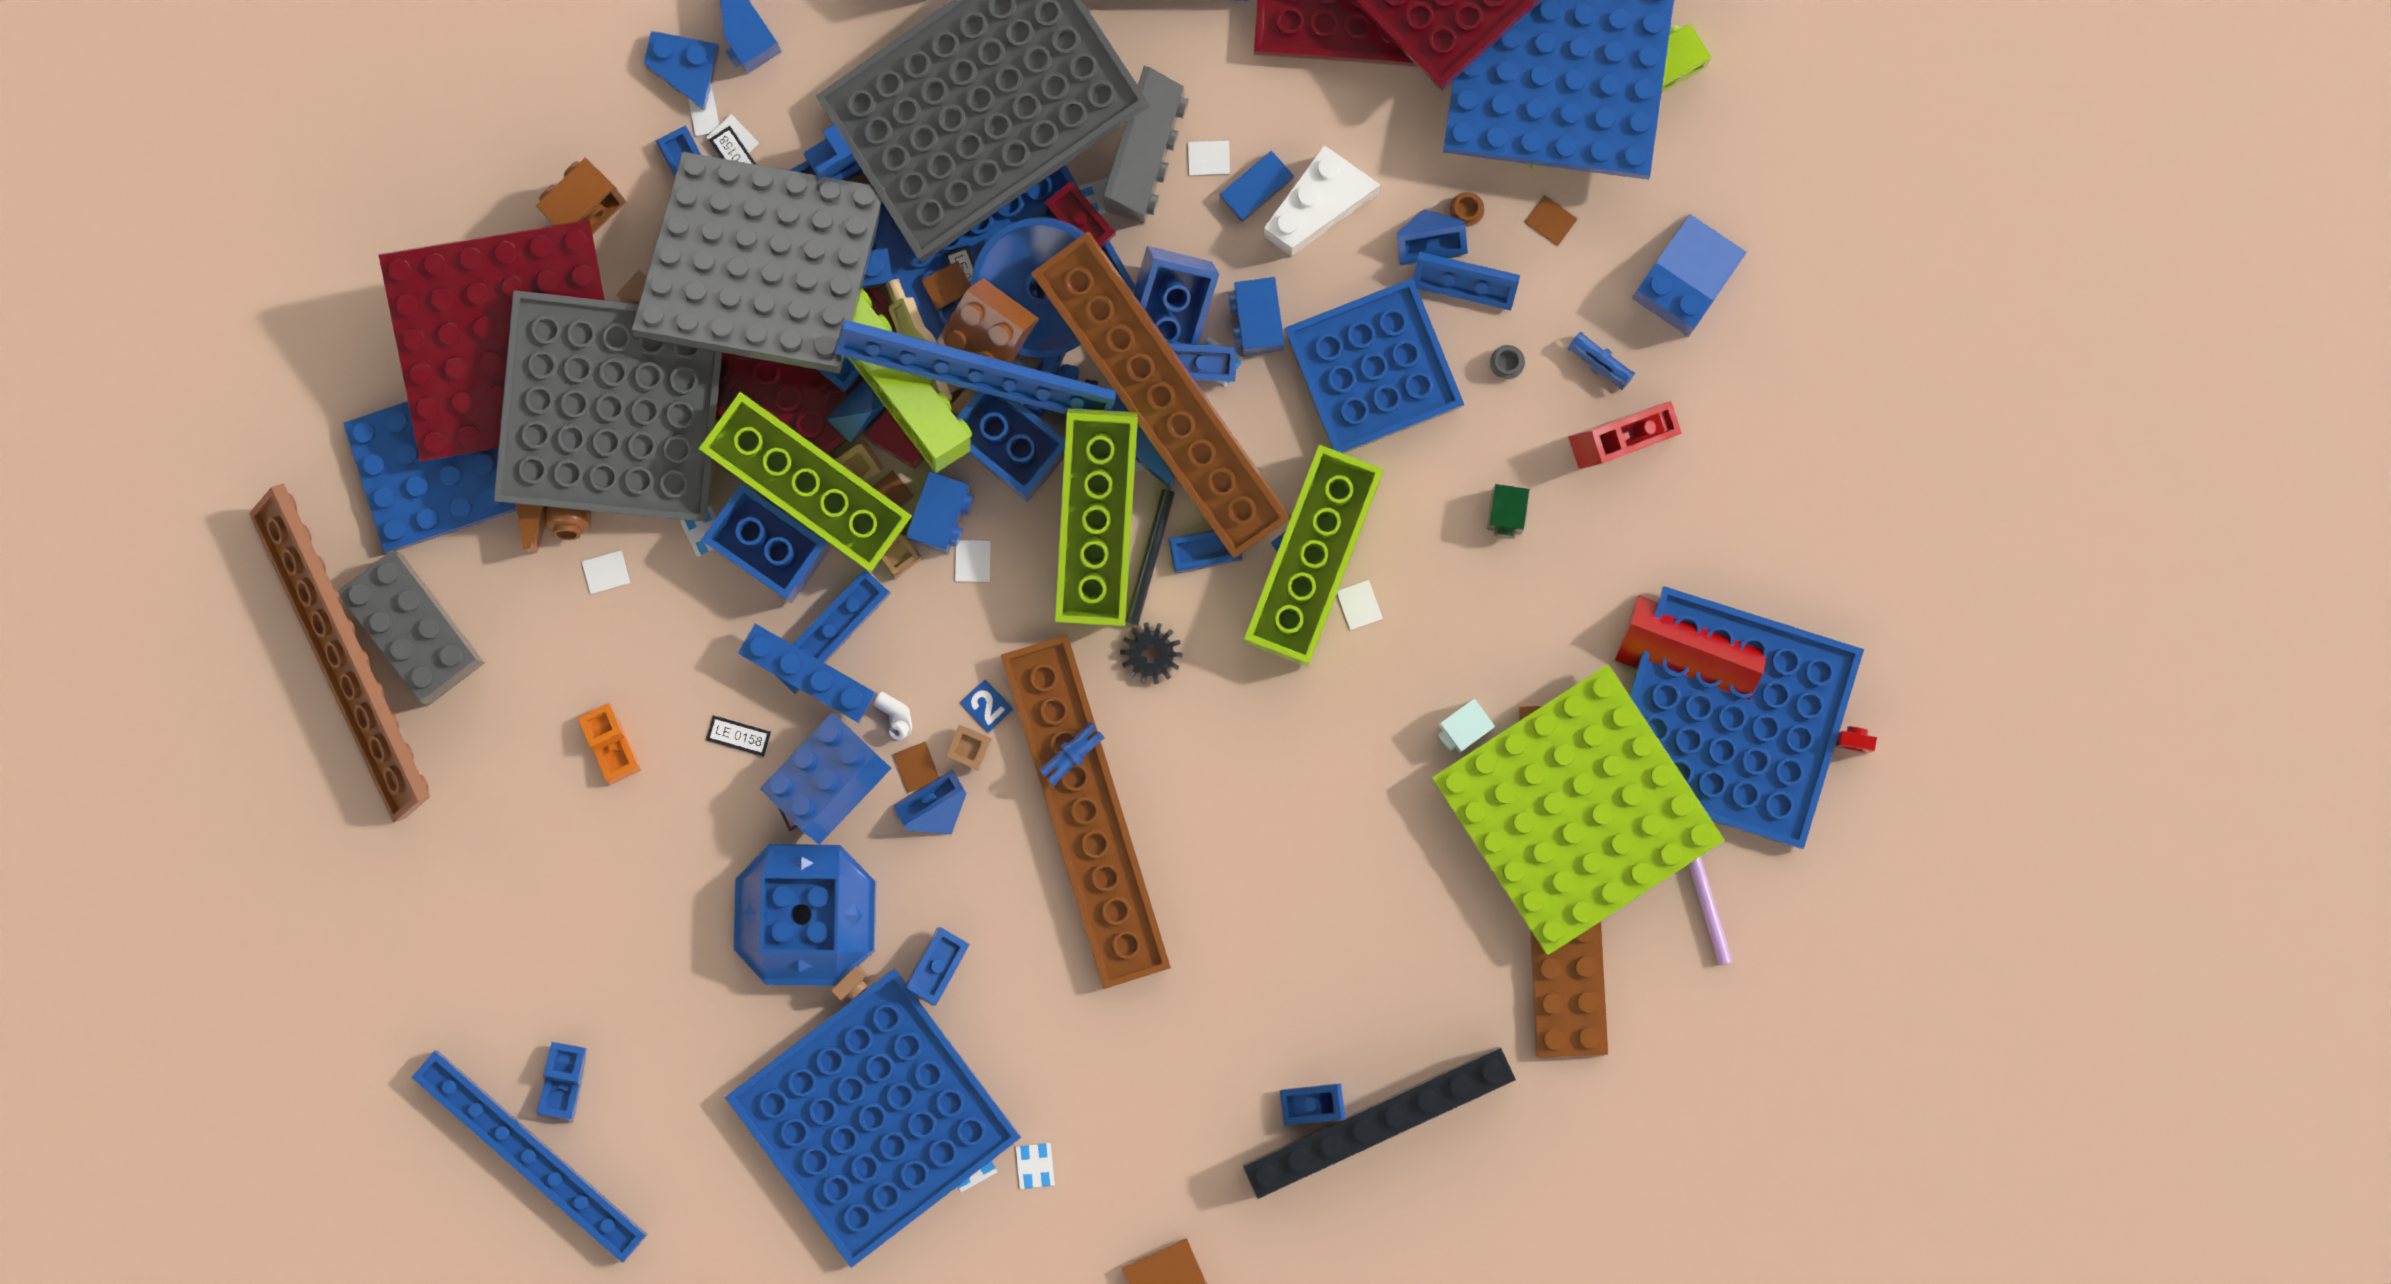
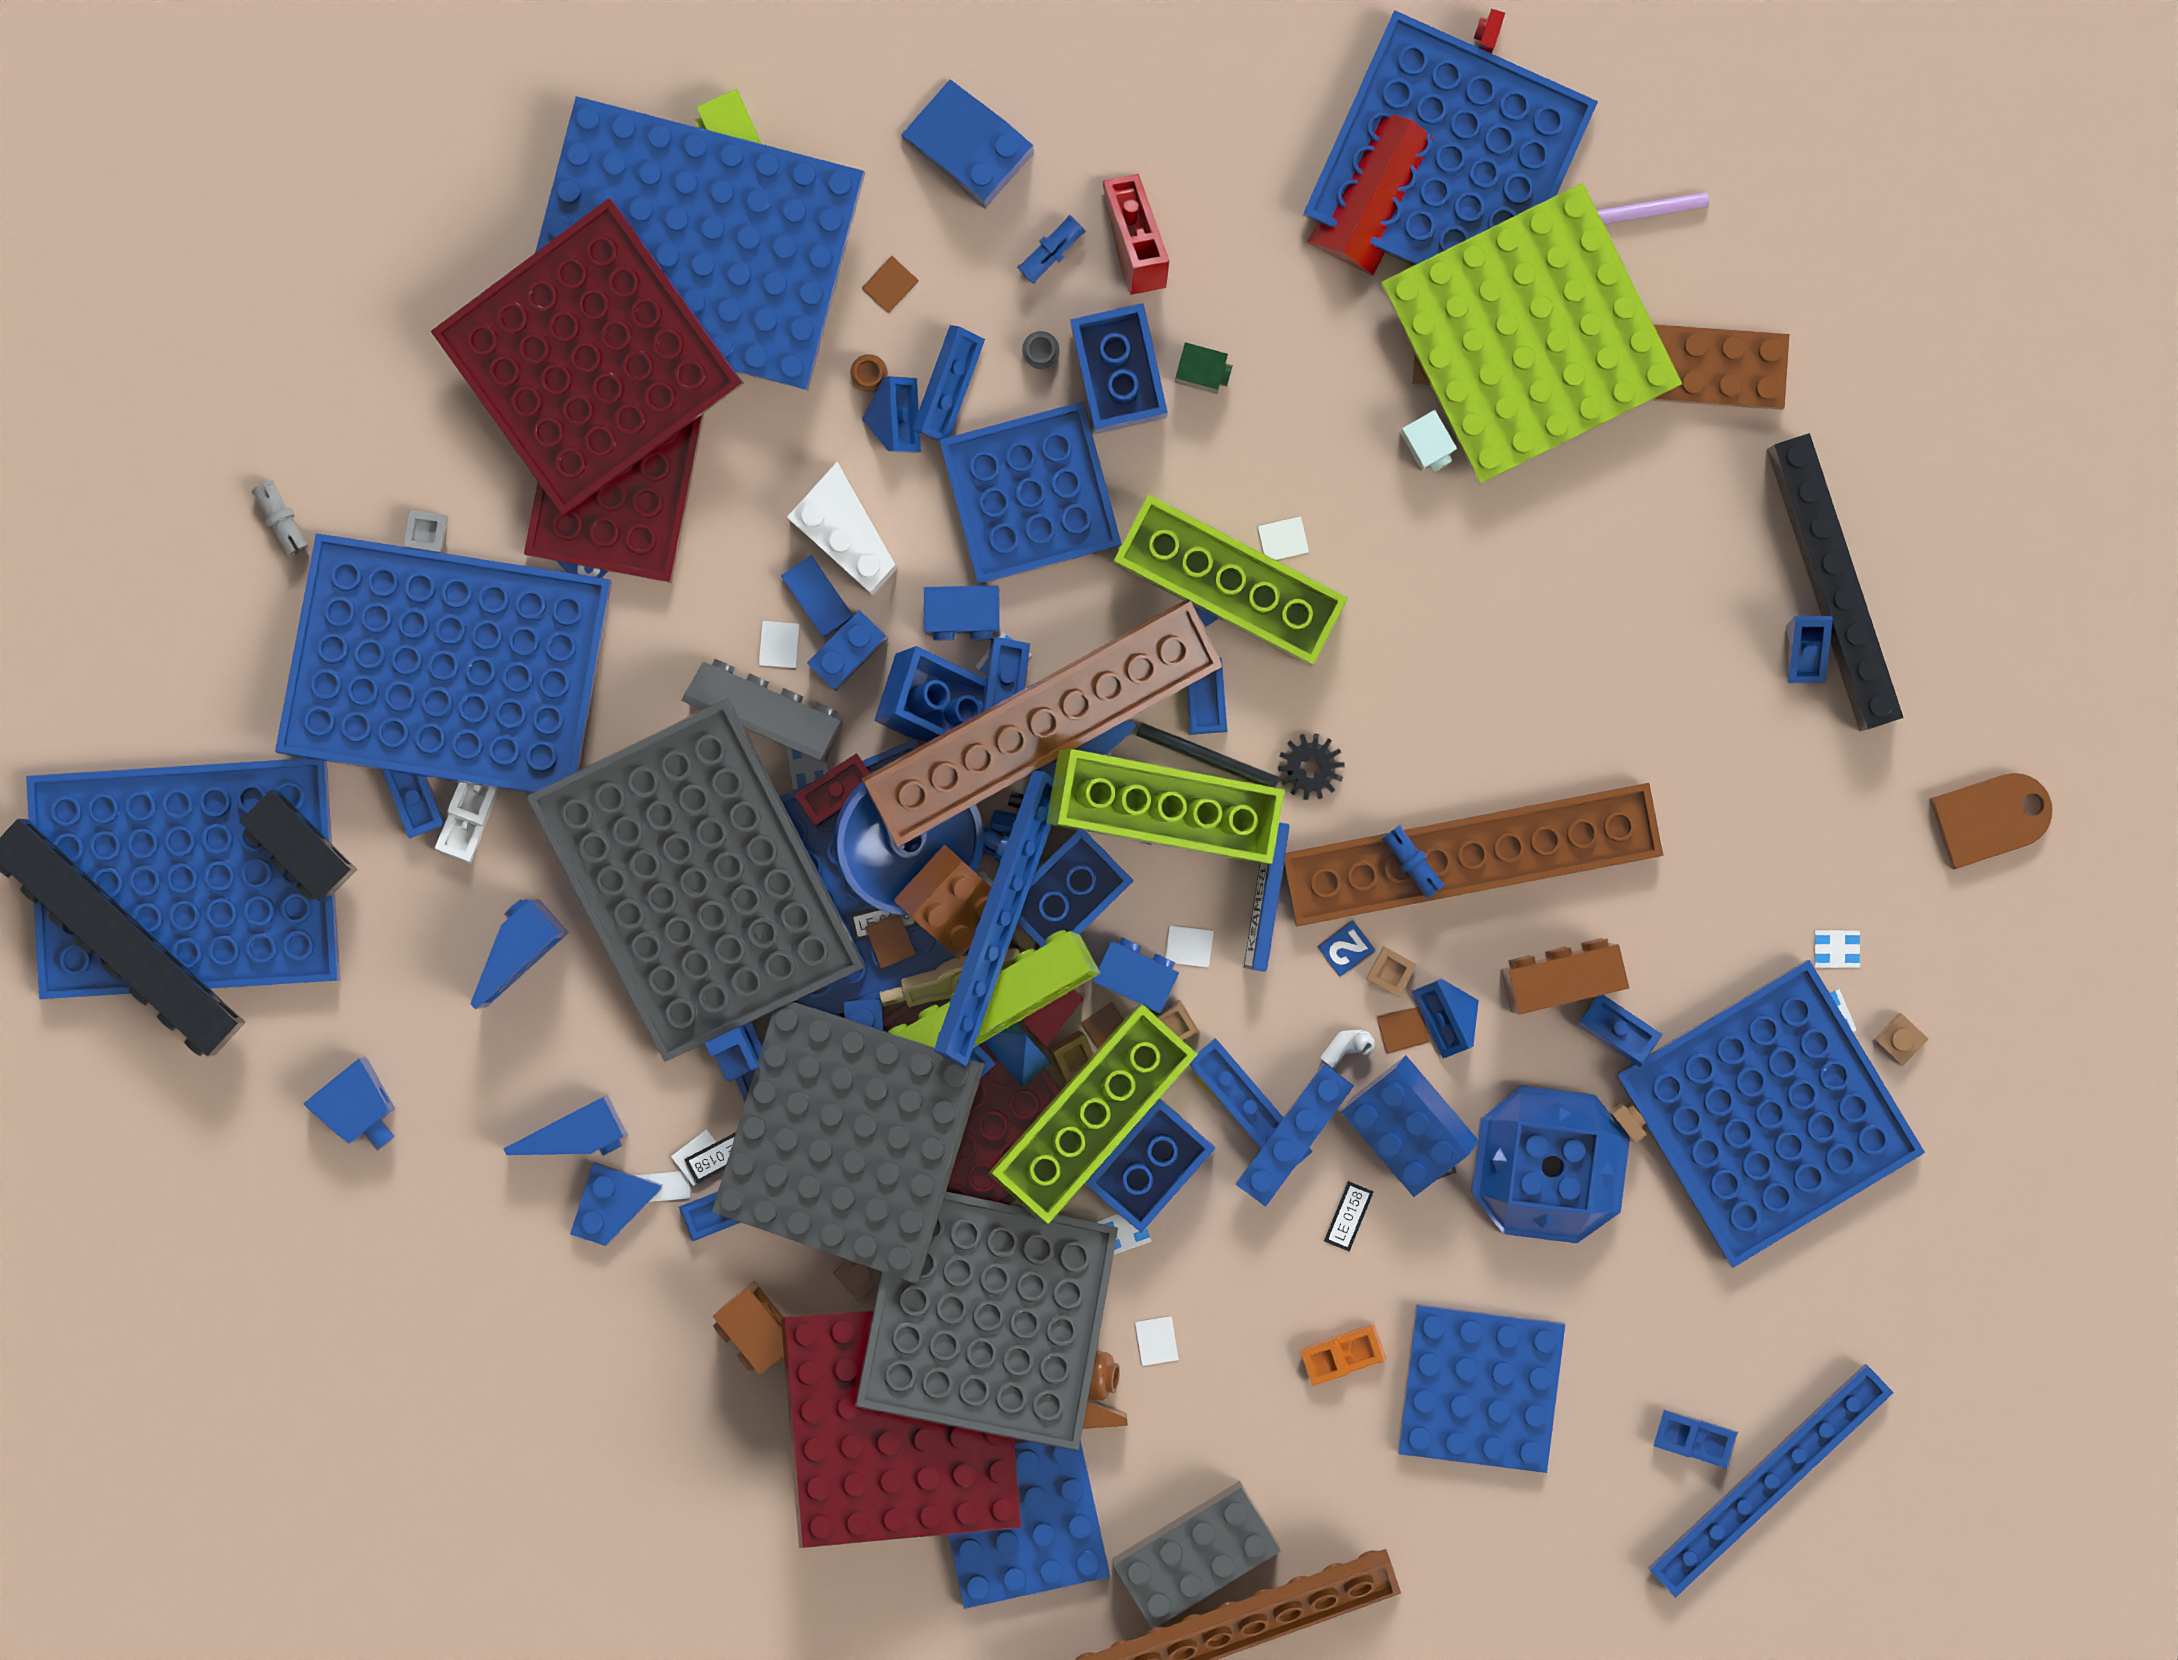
camera: 80 degrees left, 5 degrees up
(590, 876) = (1481, 1388): none -> blue plate
(956, 1234) = (1900, 1039): none -> medium nougat plate
(979, 905) = (1564, 976): none -> dark orange brick
(1020, 624) = (1266, 905): none -> blue tile
(1209, 216) = (847, 650): none -> blue brick
(1497, 432) = (1119, 368): none -> blue brick

